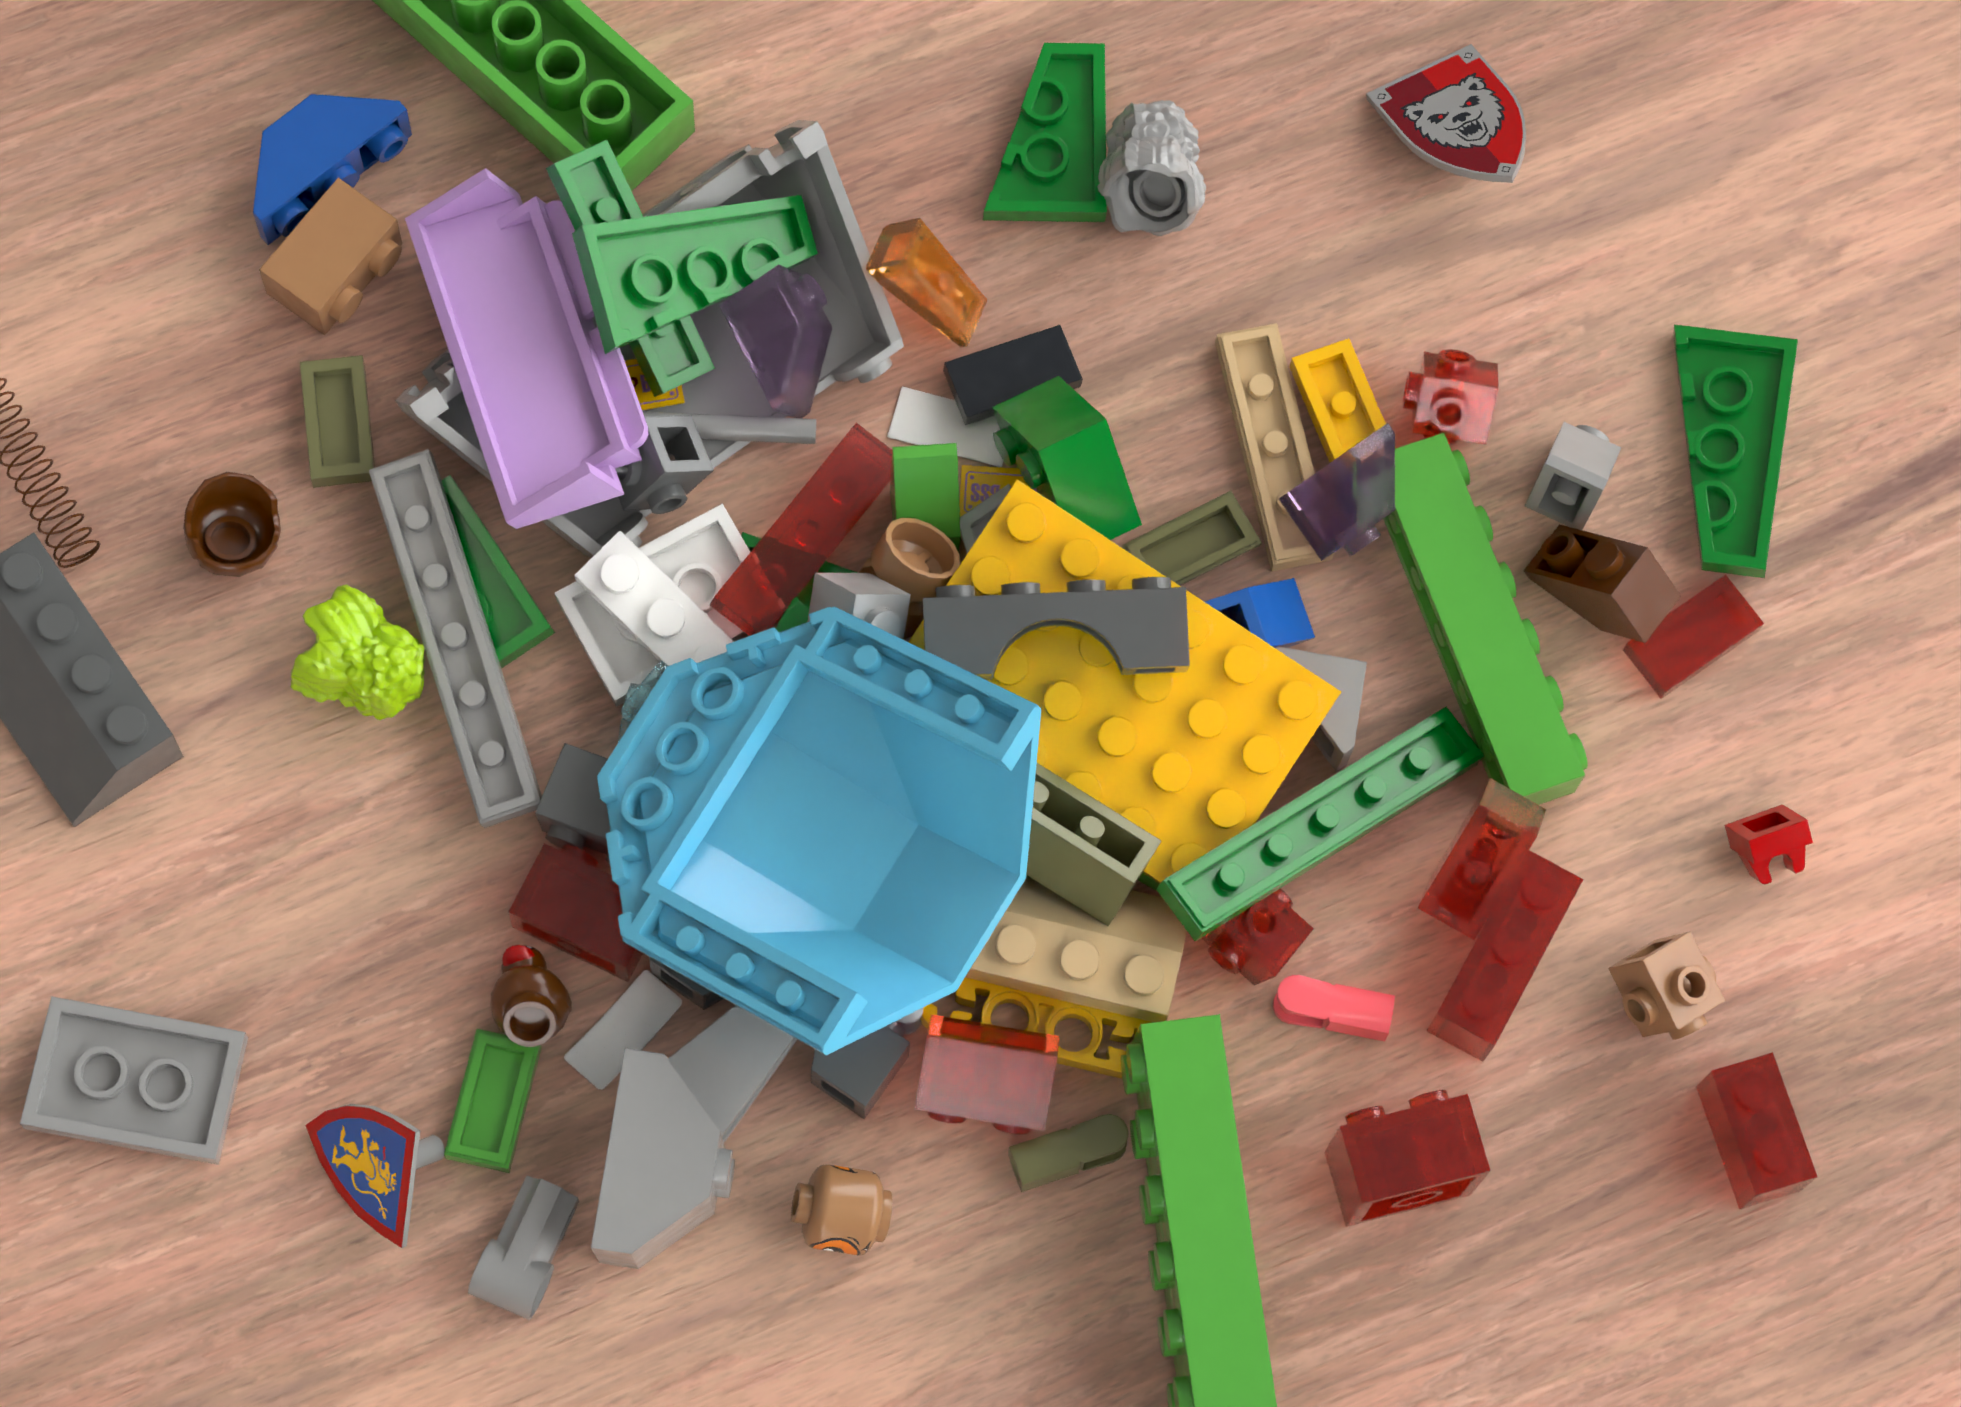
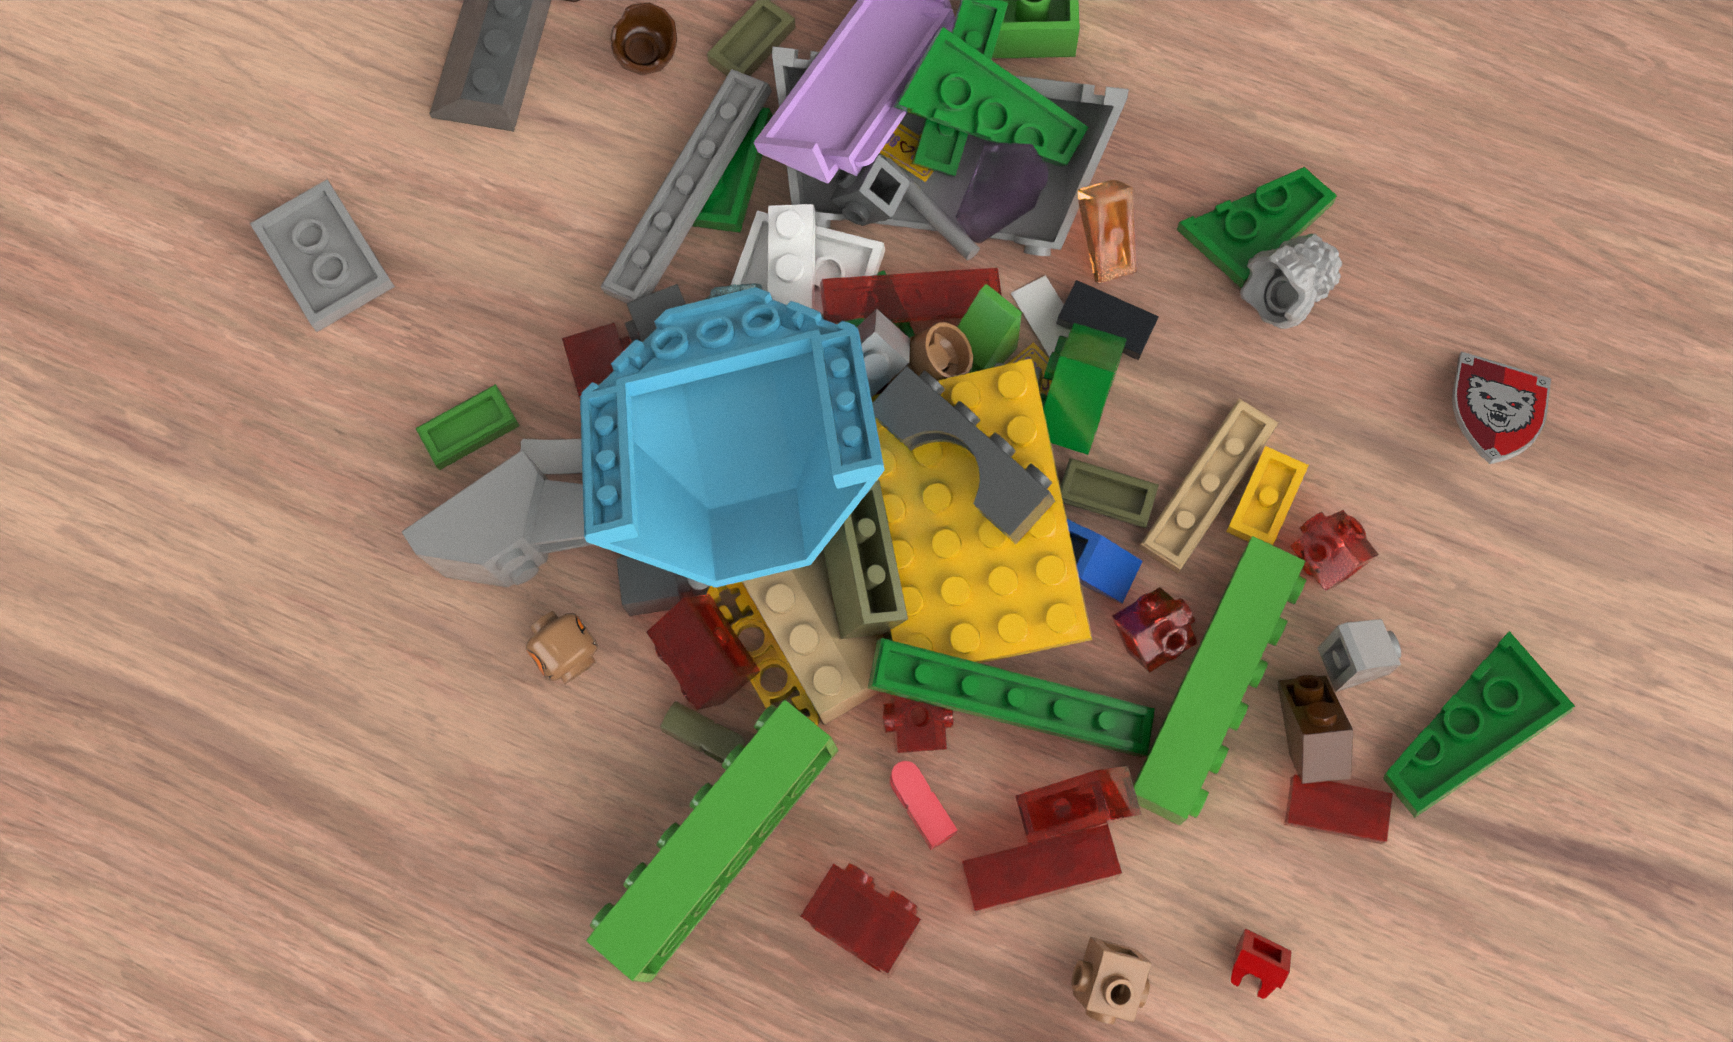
camera: 60 degrees right, 0 degrees up
(359, 657) = (631, 151): lime hair -> none
(373, 1163) = (379, 396): shield -> none
(518, 1264) = (386, 513): light grey piece -> none
(528, 998) = (529, 392): reddish brown animal -> none
(1339, 727) = (1106, 642): light grey slope -> none
(1347, 496) = (1213, 541): clear purple slope -> none
(1377, 626) = (1156, 628): none -> clear red brick

